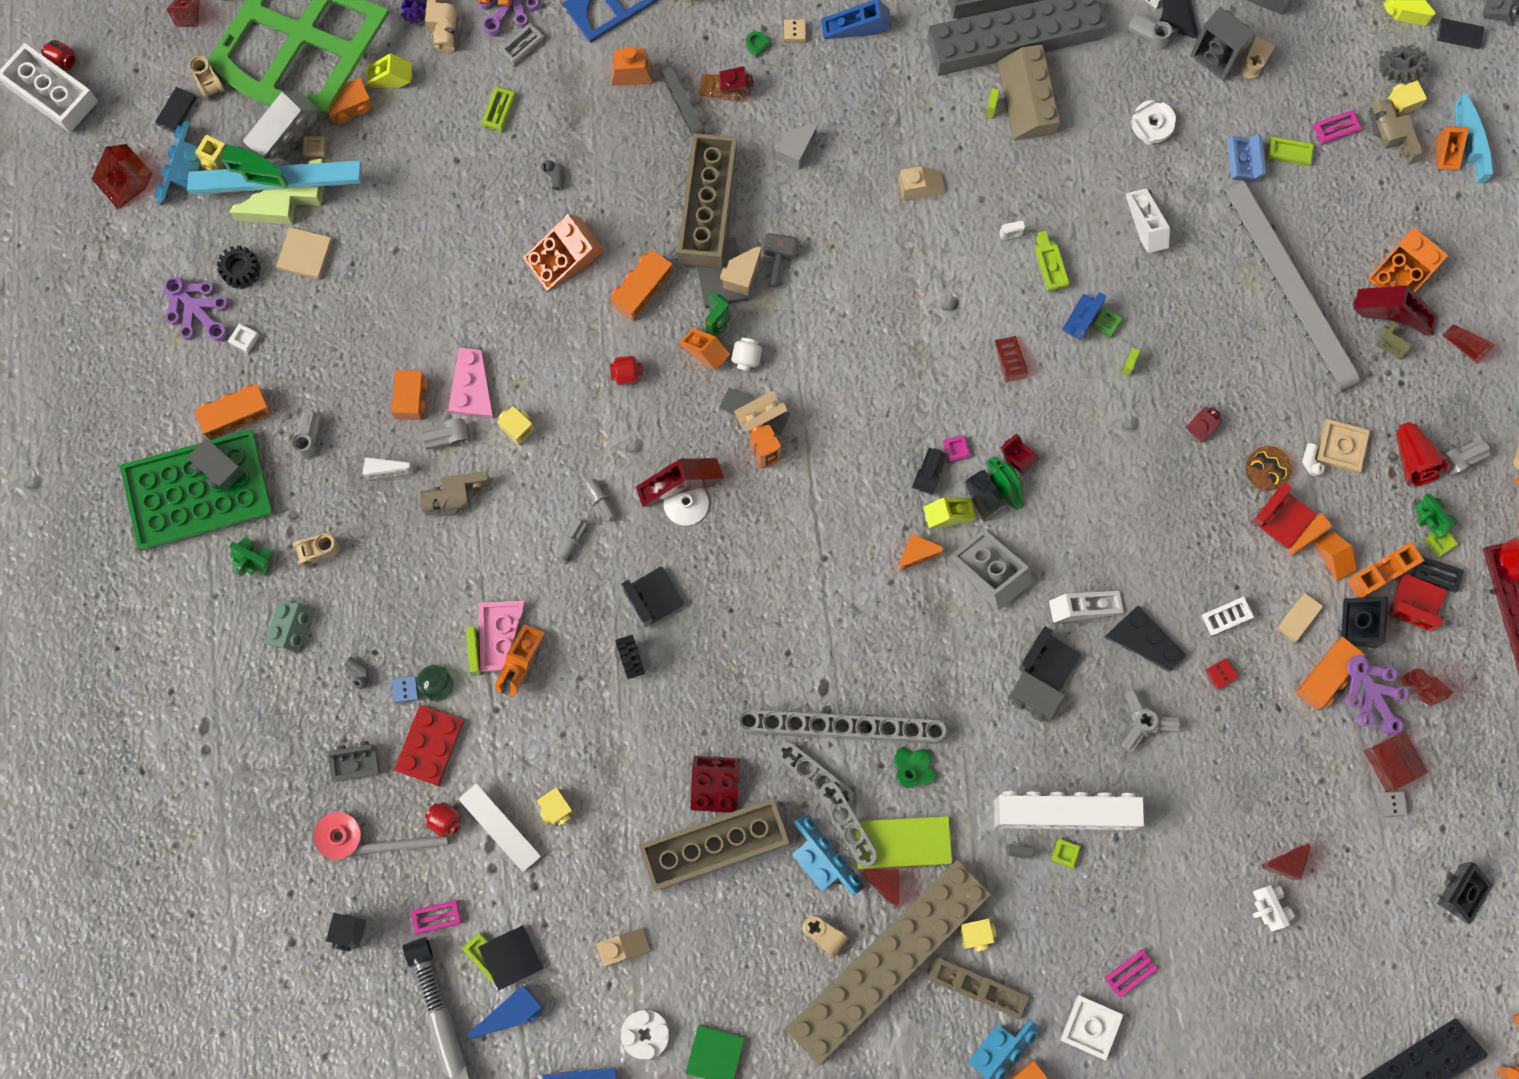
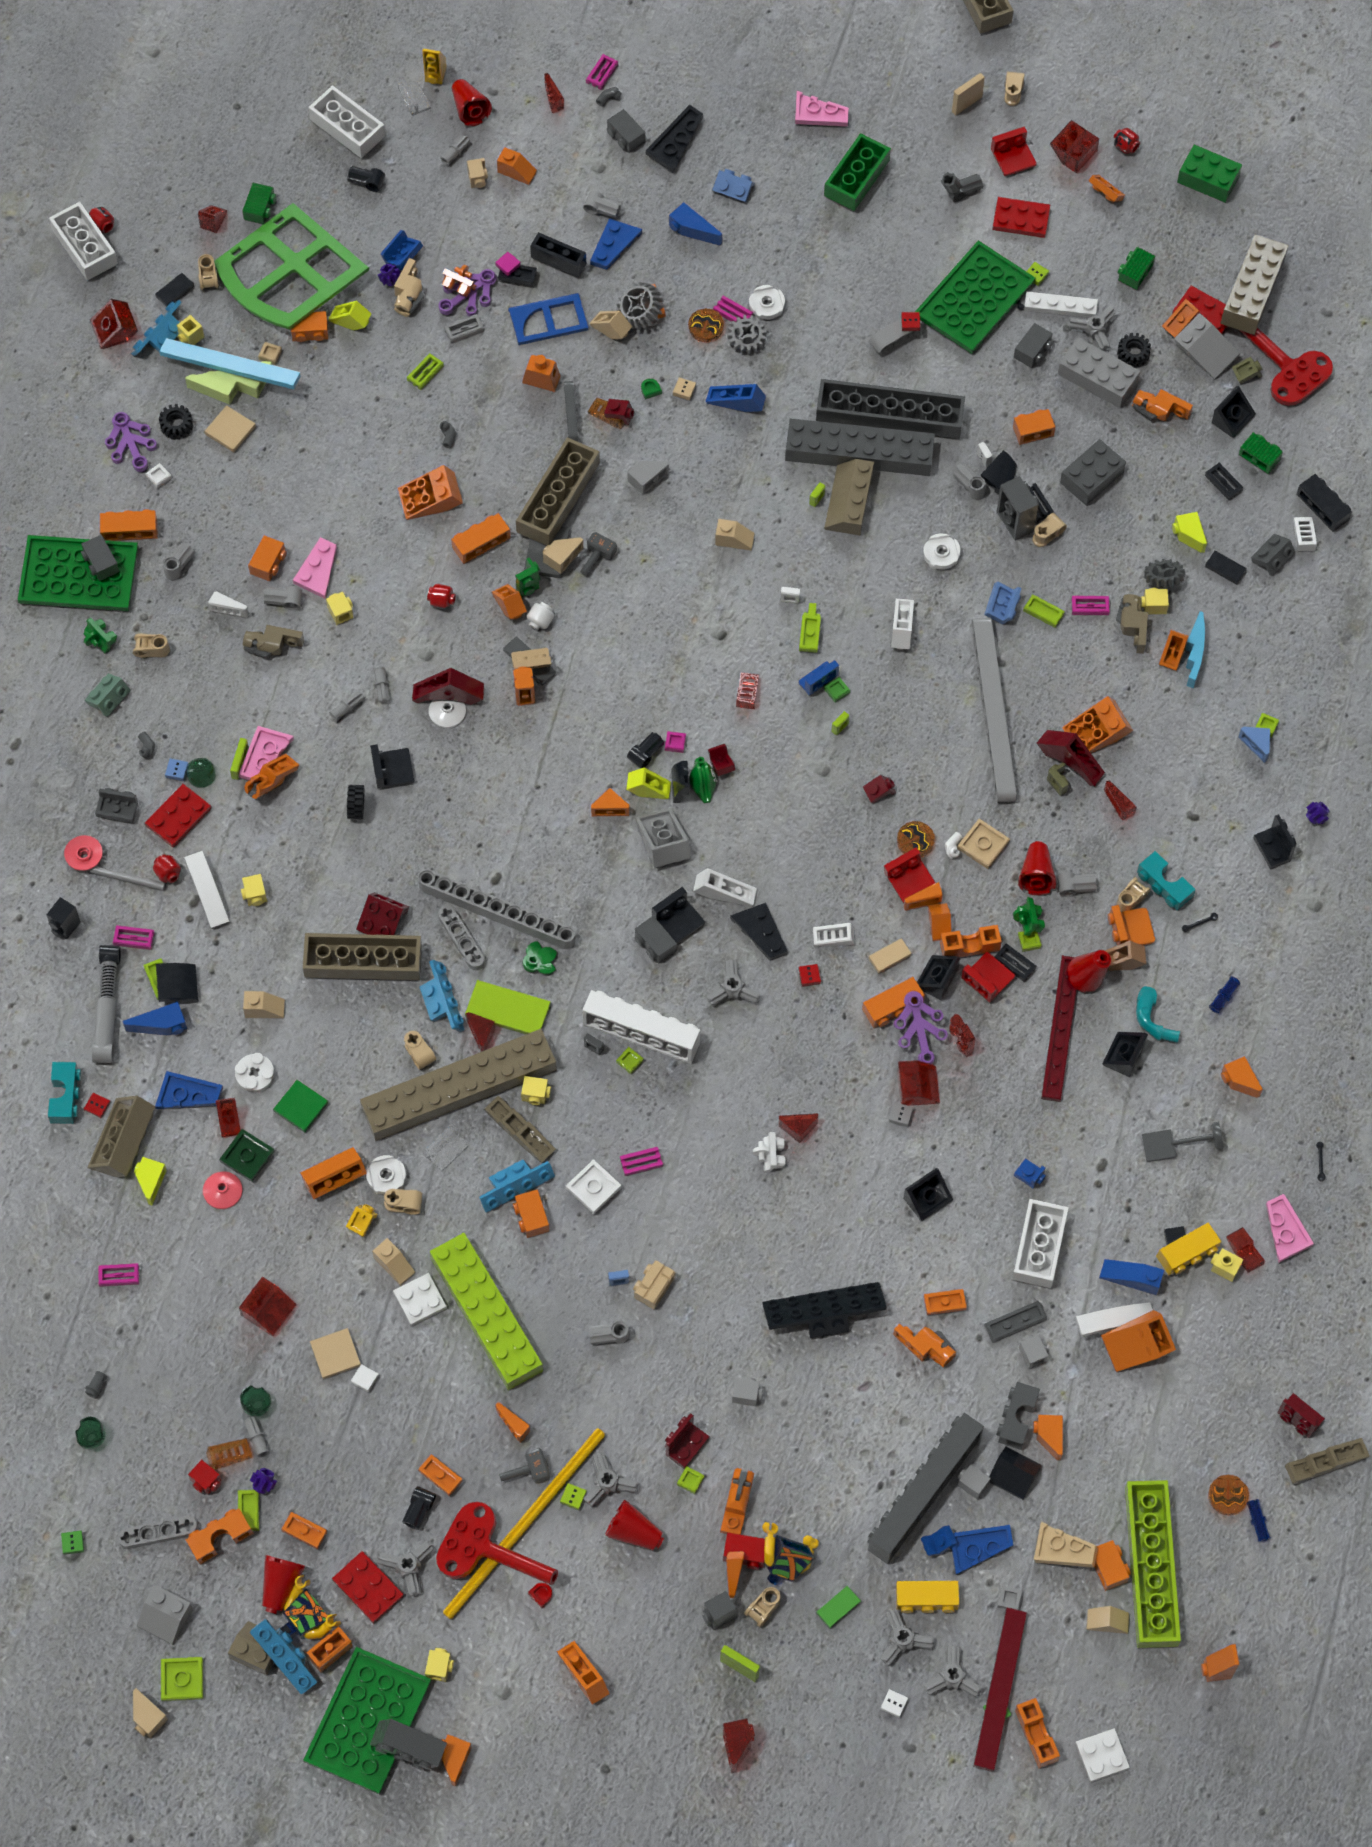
camera: 20 degrees right, 10 degrees down
(252, 167) = (216, 349): green slope -> none
(281, 125) = (250, 326): brick -> none
(844, 826) = (469, 978): light grey beam -> none

